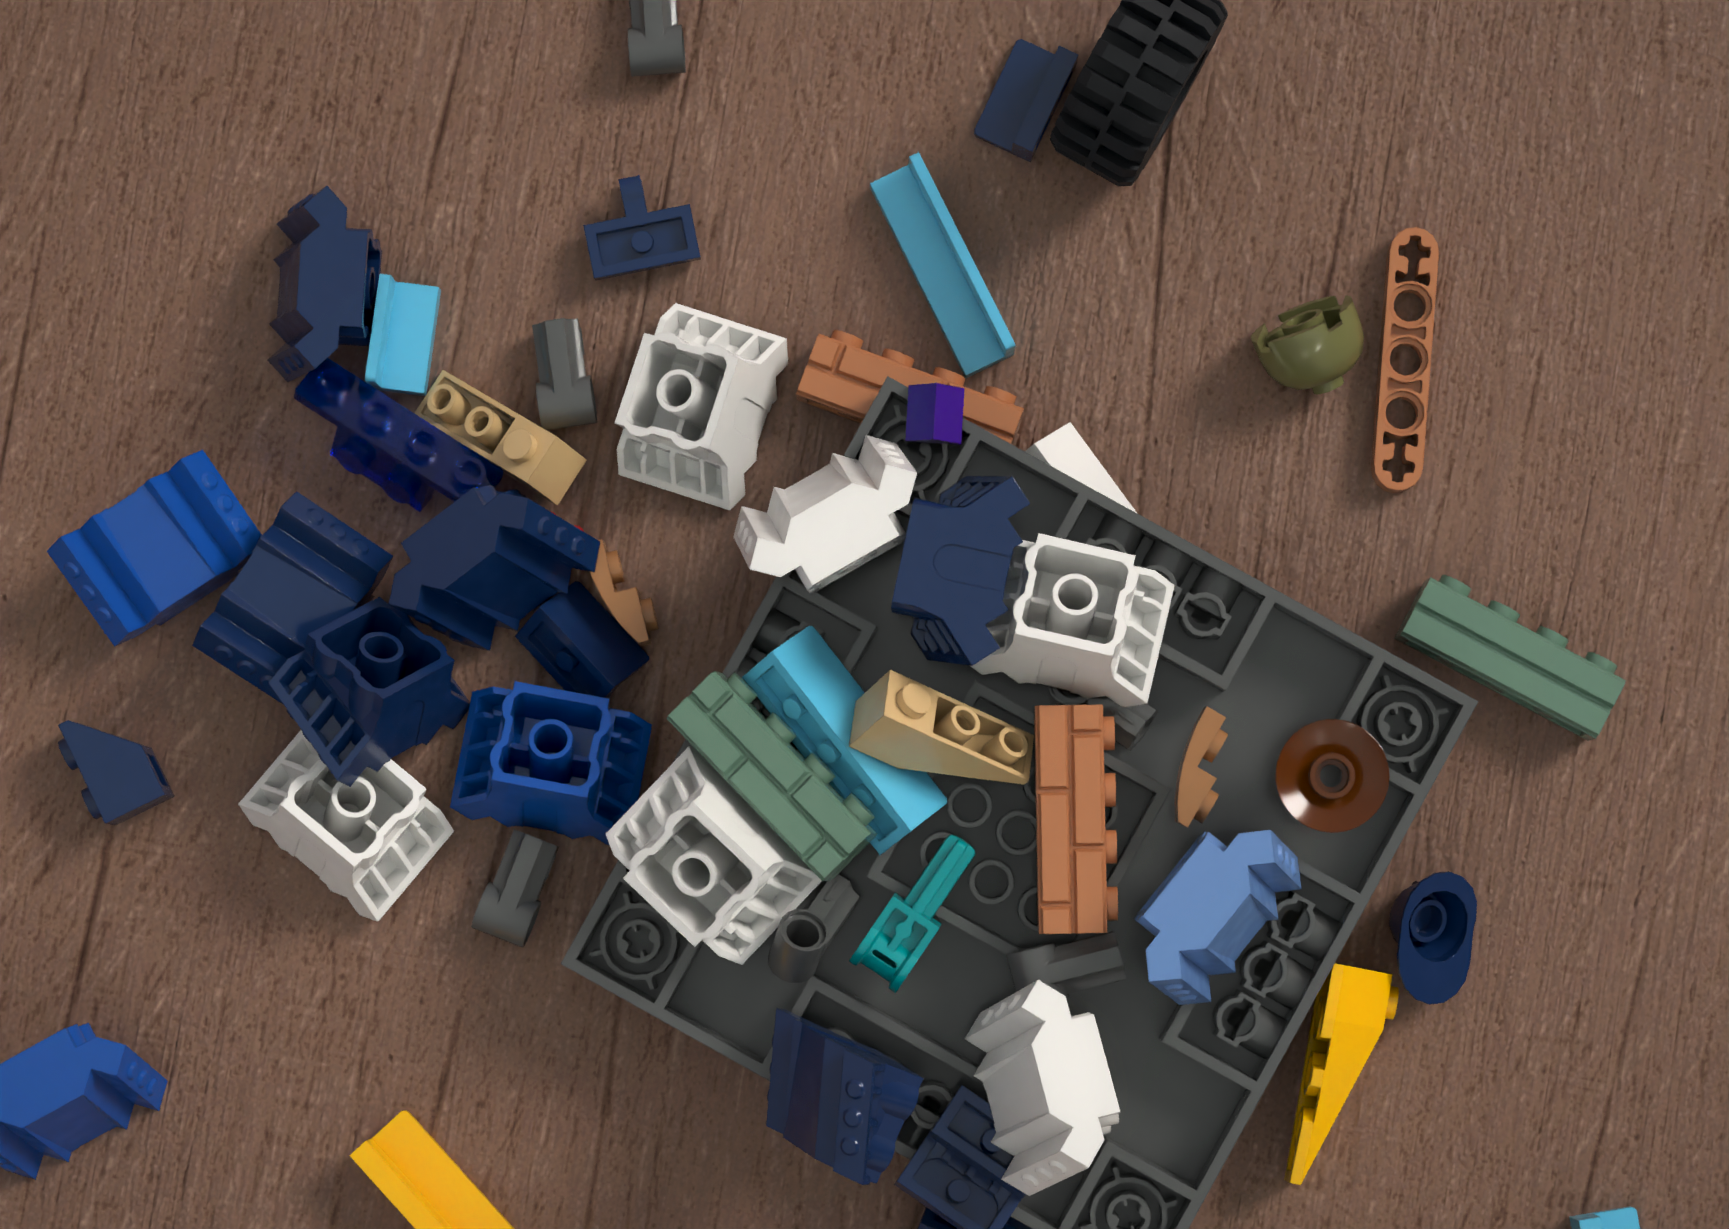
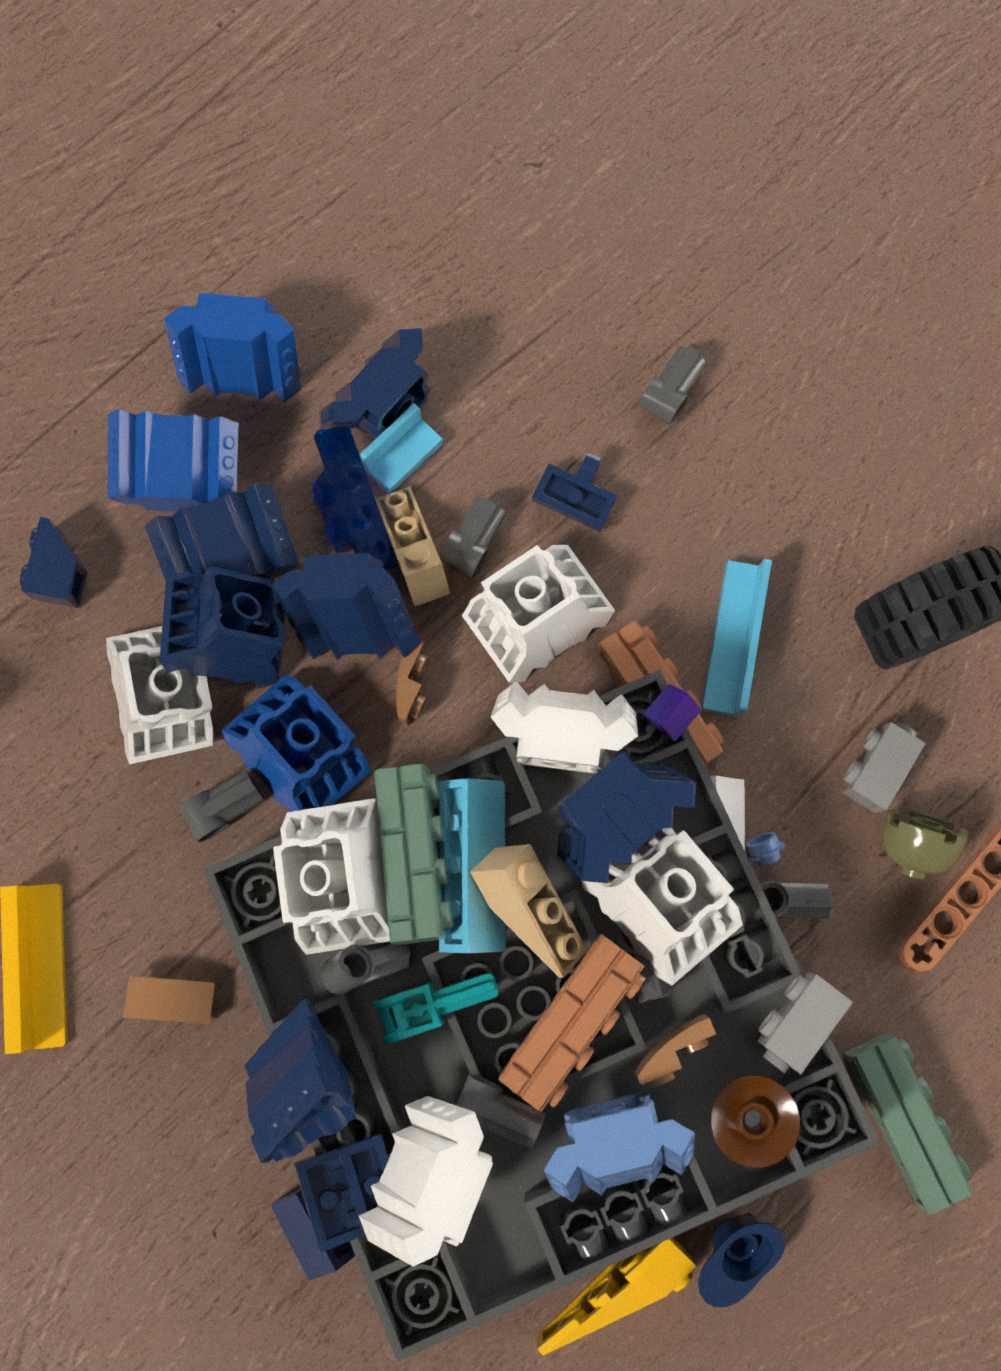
camera: 30 degrees right, 5 degrees down
(120, 363) = (233, 347): none -> blue slope
(581, 643) = (367, 694): dark blue panel -> none
(626, 1136) = (168, 1000): none -> medium nougat slope
(1025, 98) = (853, 579): dark blue panel -> none
(1148, 480) = (764, 848): none -> medium blue plate
(1211, 290) = (883, 766): none -> light grey brick
(1224, 509) = (800, 899): none -> dark grey piece
(1308, 638) = (802, 1022): none -> light grey brick

